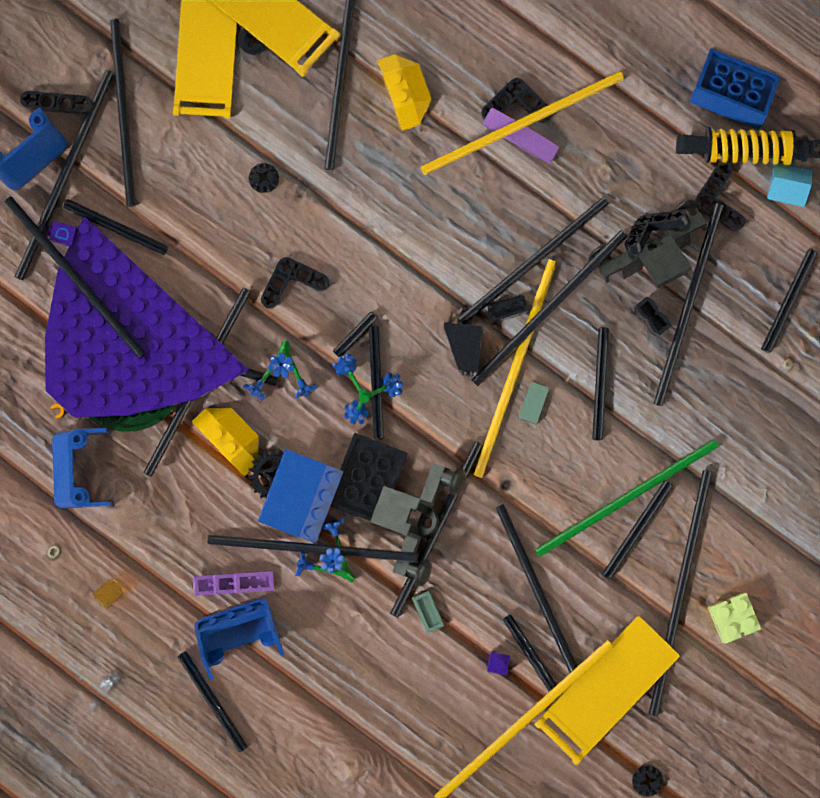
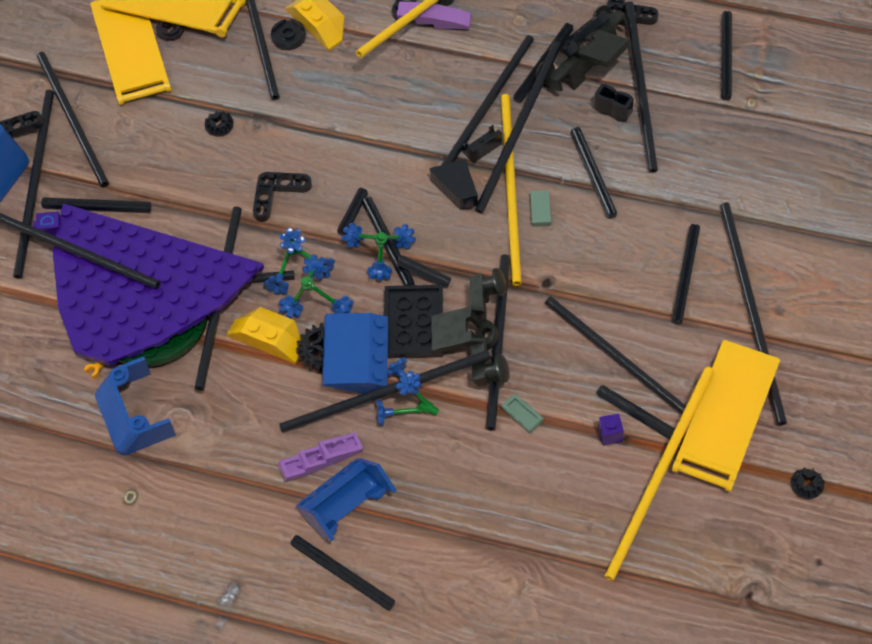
camera: 15 degrees left, 25 degrees down
(109, 593) = (198, 509): clear yellow brick -> none
(294, 395) = (314, 268): none -> blue plant
(368, 95) = (288, 34): none -> black tile
(396, 431) = (423, 271): none -> black axle
(606, 235) = (528, 83): none -> black axle
(626, 498) = (661, 254): green piece -> none
(734, 618) = (811, 309): yellowish green piece -> none

